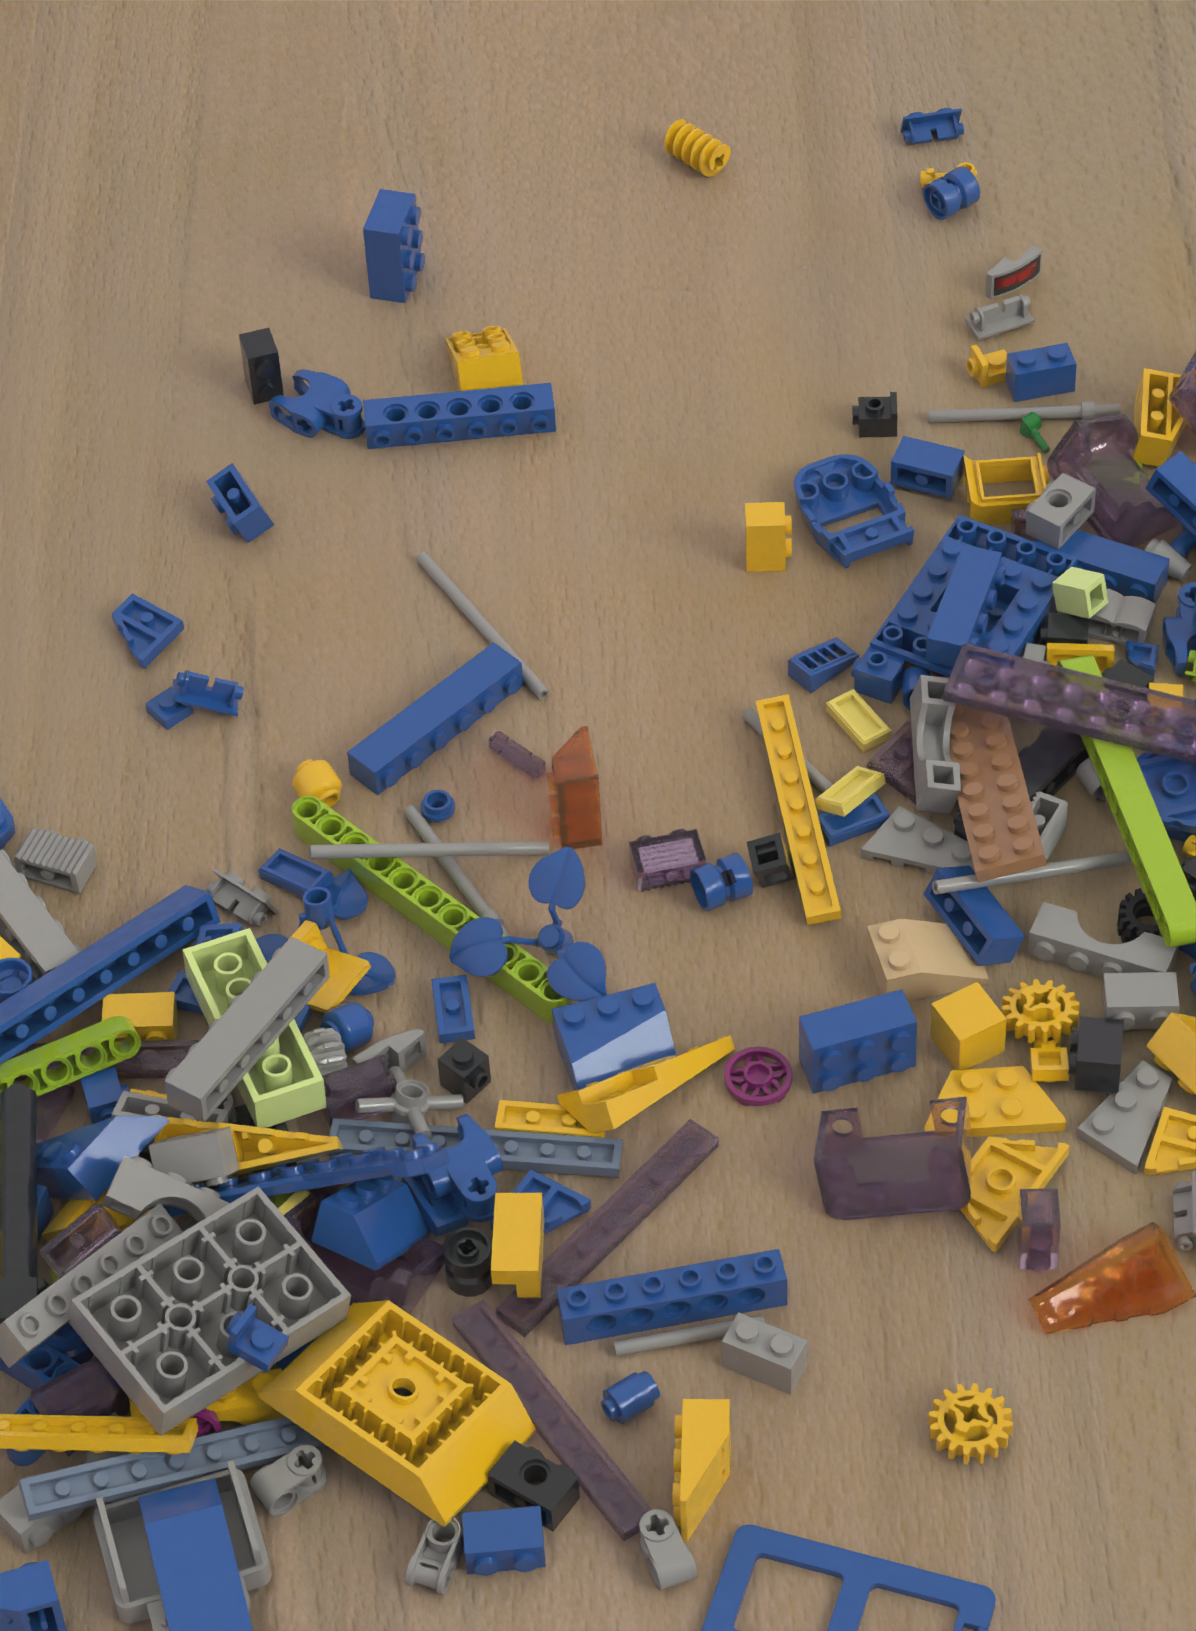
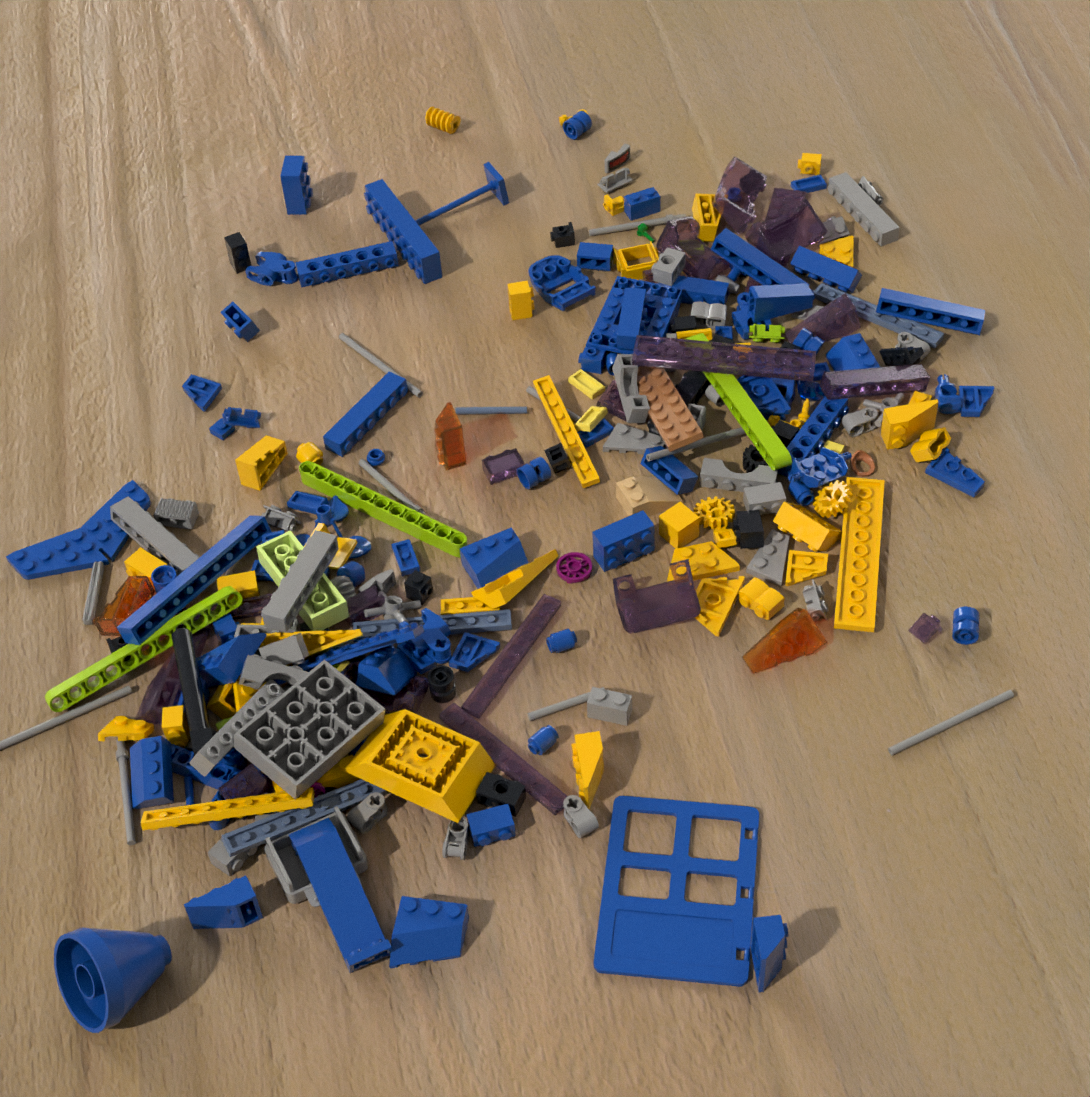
camera: 10 degrees left, 0 degrees up
(80, 1240) = (230, 704): brick -> none
(226, 783) = (260, 462): none -> yellow wedge
(255, 1340) = (339, 739): blue bracket -> none
(428, 849) = (376, 478): light grey piece -> none
(484, 359) = (354, 235): yellow slope -> none
(517, 754) = (412, 426): axle -> none
(518, 1242) = (467, 669): yellow piece -> none
(575, 367) = (403, 231): none -> blue brick
(580, 967) = (469, 526): blue plant -> none
(669, 745) = (491, 410): none -> sand blue bar
(672, 1296) = (554, 685): blue brick -> none
(703, 1214) = (561, 641): none -> blue brick
(768, 294) = (495, 184): none -> blue tile
(814, 678) = (557, 367): blue slope -> none
(918, 126) = (553, 96): blue hinge -> none
(971, 1425) = (725, 725): yellow gear -> none
(1038, 1229) = (739, 620): brick -> none
(1080, 592) = (688, 304): yellowish green brick -> none
(1091, 1193) = (761, 598): none -> yellow brick

